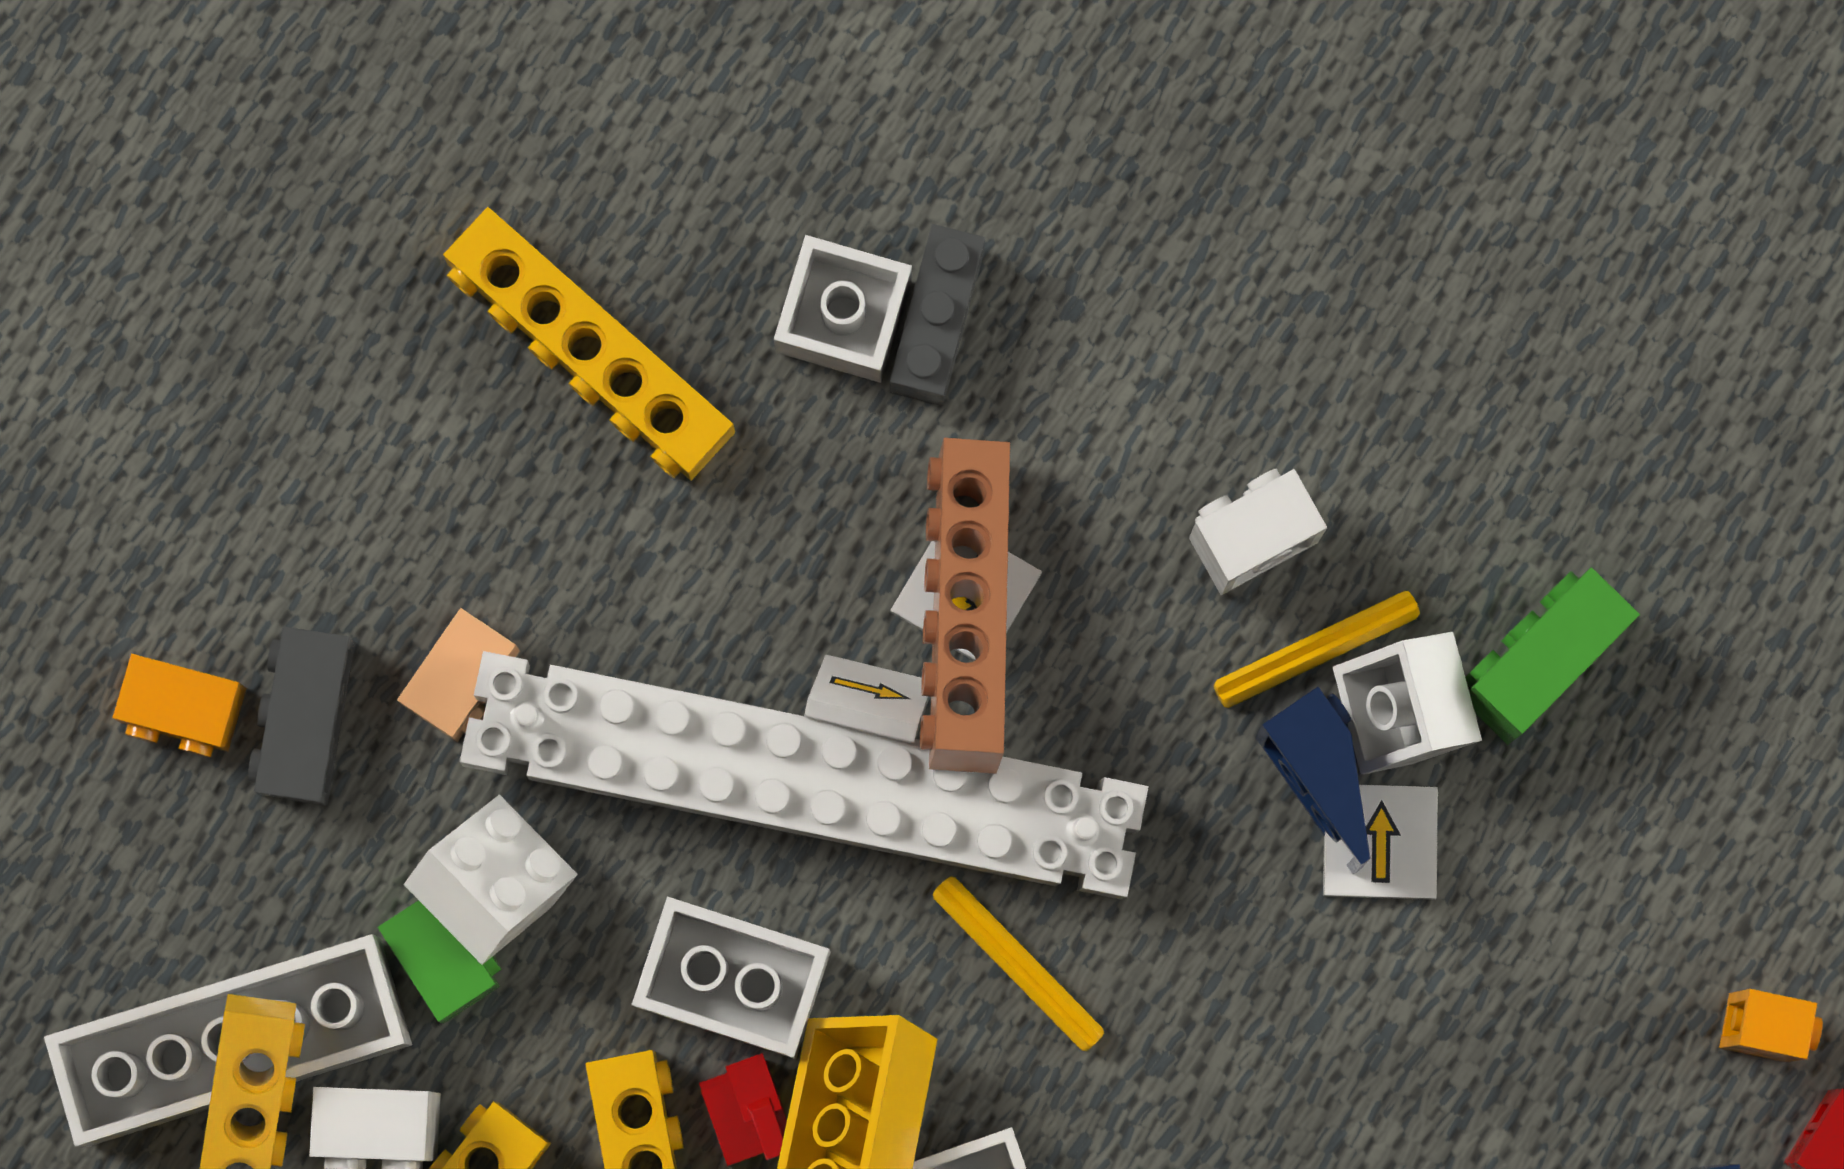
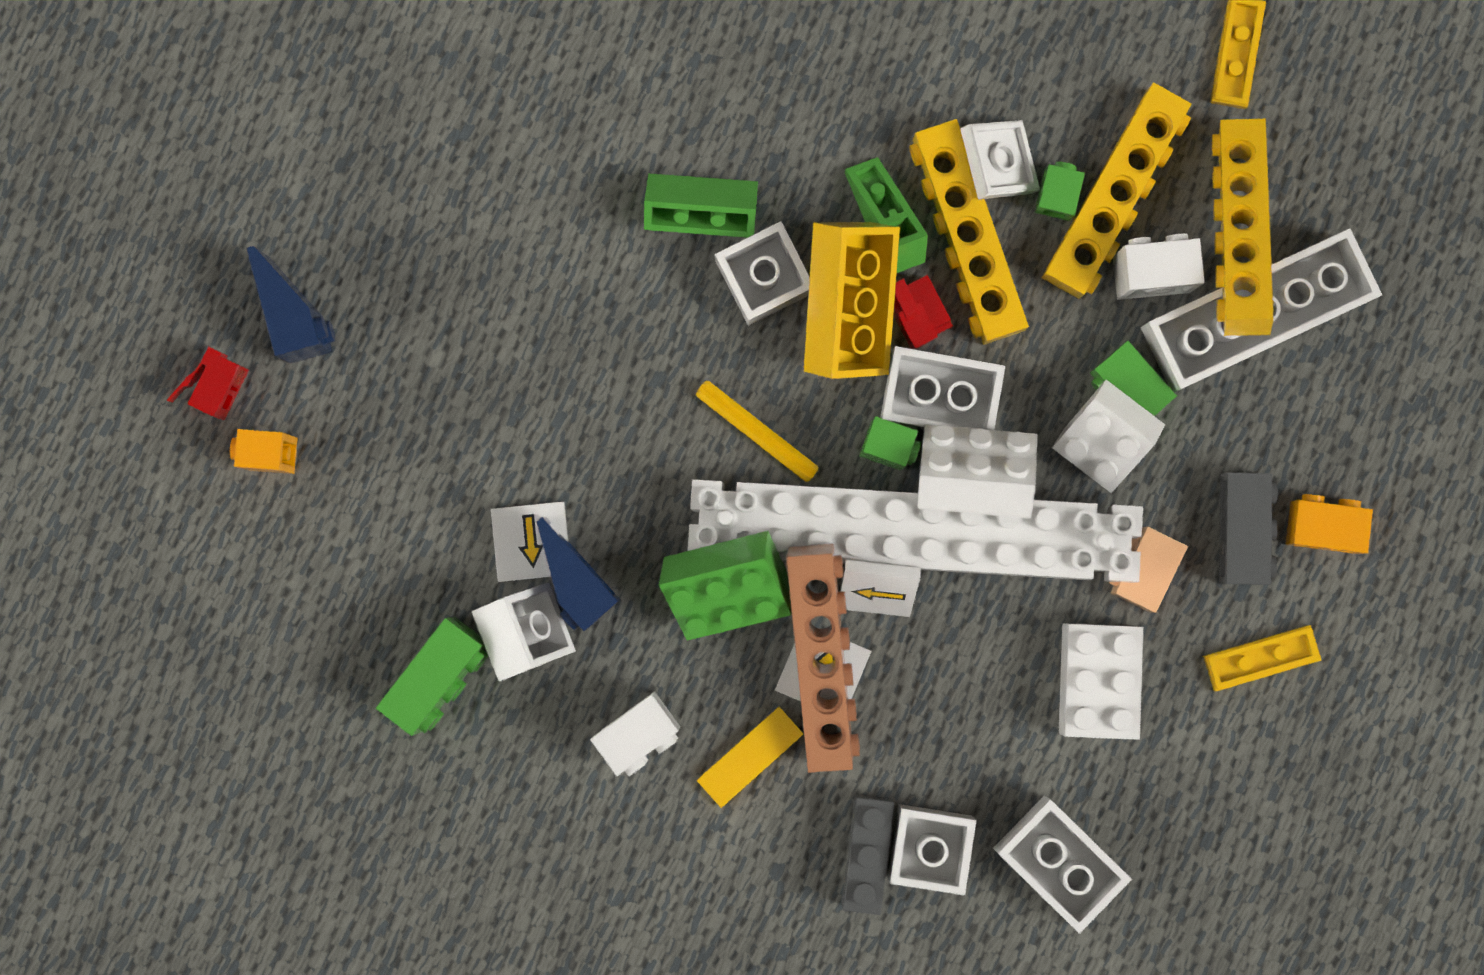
camera: 175 degrees right, 5 degrees up
(309, 524) = (1262, 658): none -> yellow tile
(493, 243) = (1173, 862): yellow brick -> none
(556, 520) = (1101, 681): none -> white brick
(655, 262) = (1062, 863): none -> white brick
(699, 848) = (978, 471): none -> white brick
(821, 910) = (890, 444): none -> bright green brick
(1091, 479) = (750, 757): none -> yellow tile
(1096, 729) = (726, 585): none -> bright green brick
(1316, 649) = (587, 663): yellow axle -> none

